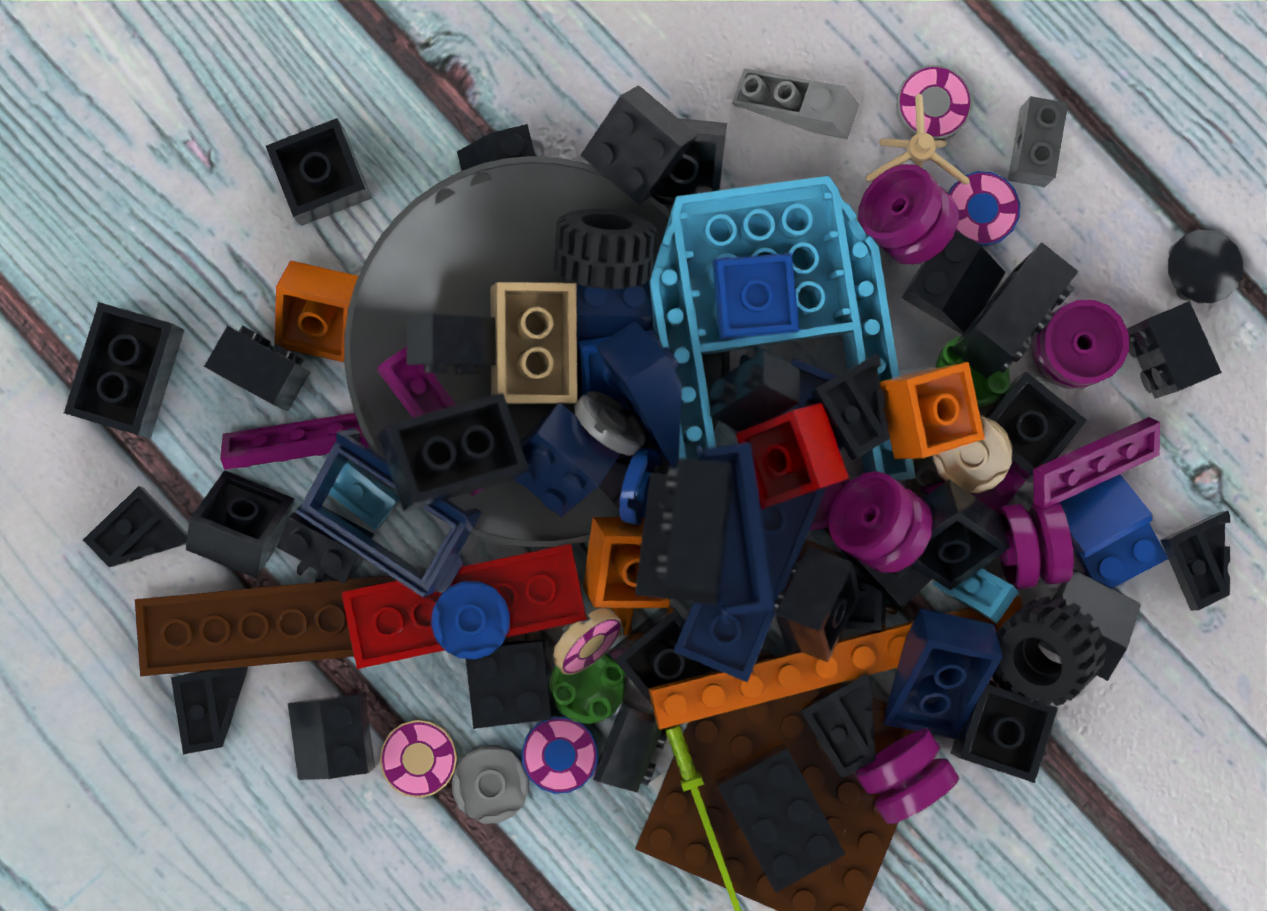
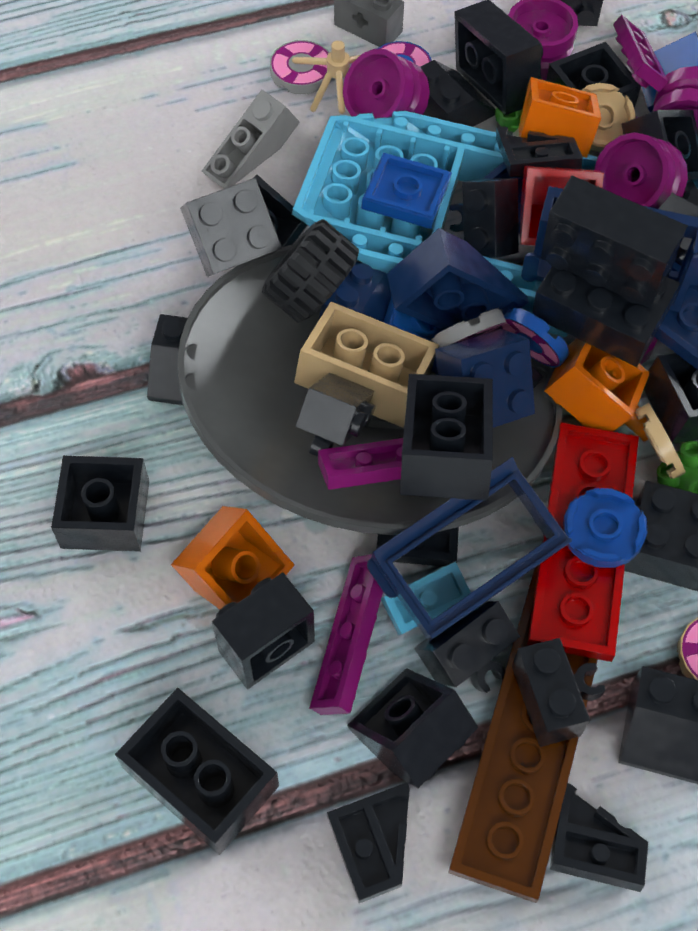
camera: 65 degrees left, 25 degrees down
(302, 629) = (553, 691): none -> black brick

